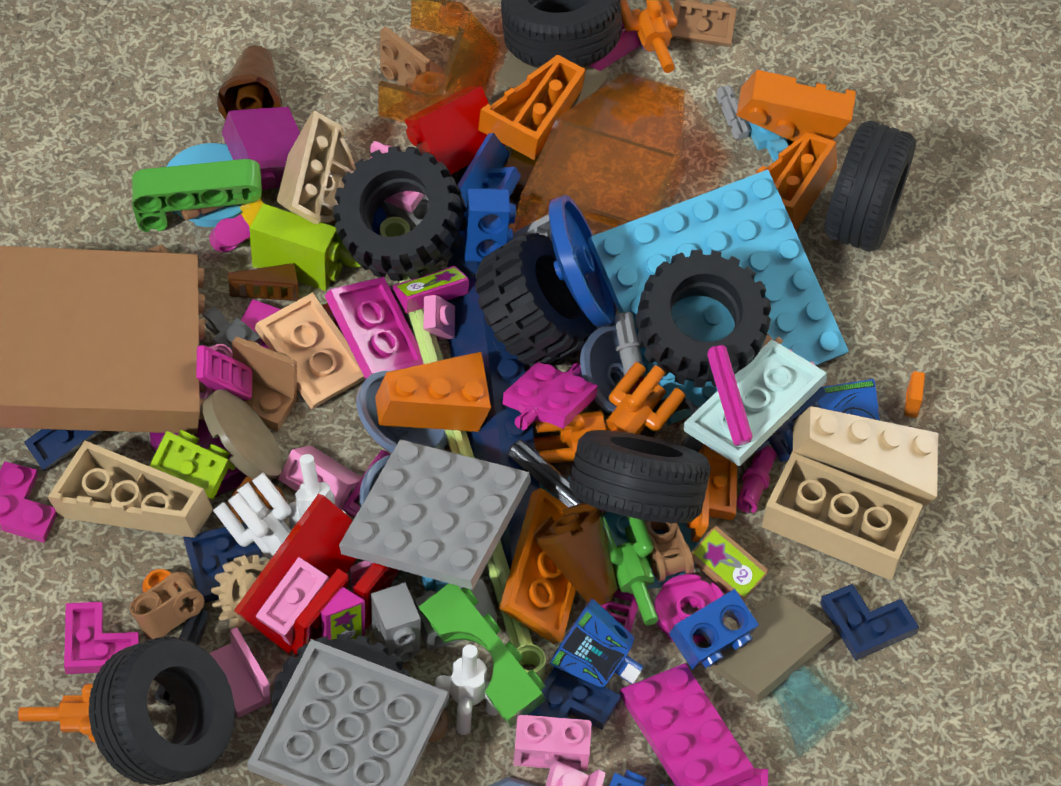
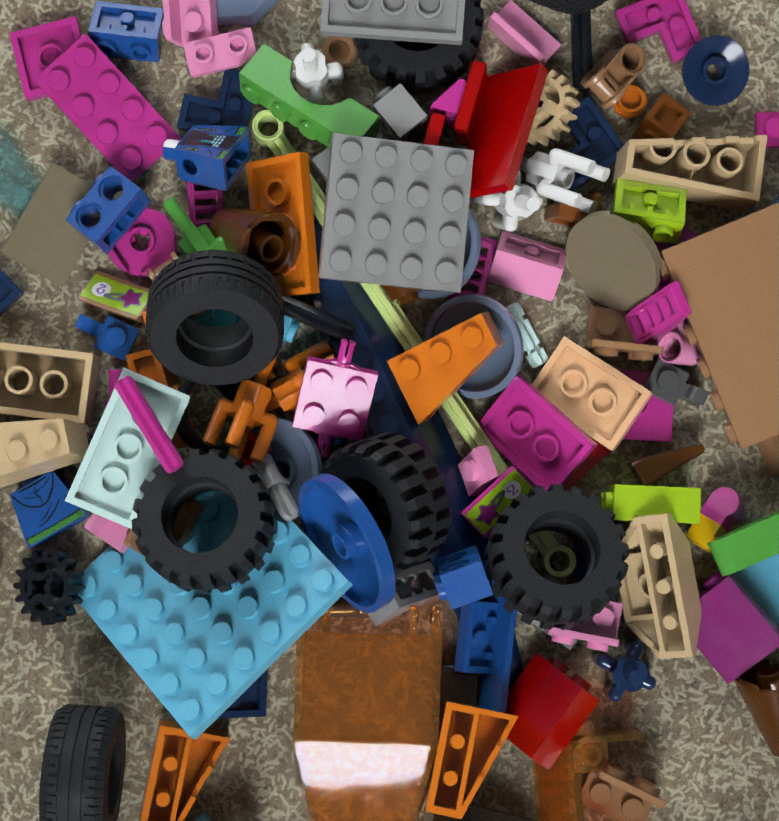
camera: 165 degrees right, 30 degrees up
(65, 580) = (730, 66): none -> dark blue dish
(137, 554) = (662, 120): none -> dark orange bracket
(291, 598) = (497, 95): bright pink panel -> none
(348, 422) = (536, 356): none -> light aqua axle
(370, 127) = (624, 670): none -> dark blue plant
(752, 540) = (112, 336): none -> blue plate
(863, 350) = (49, 586): none -> black gear

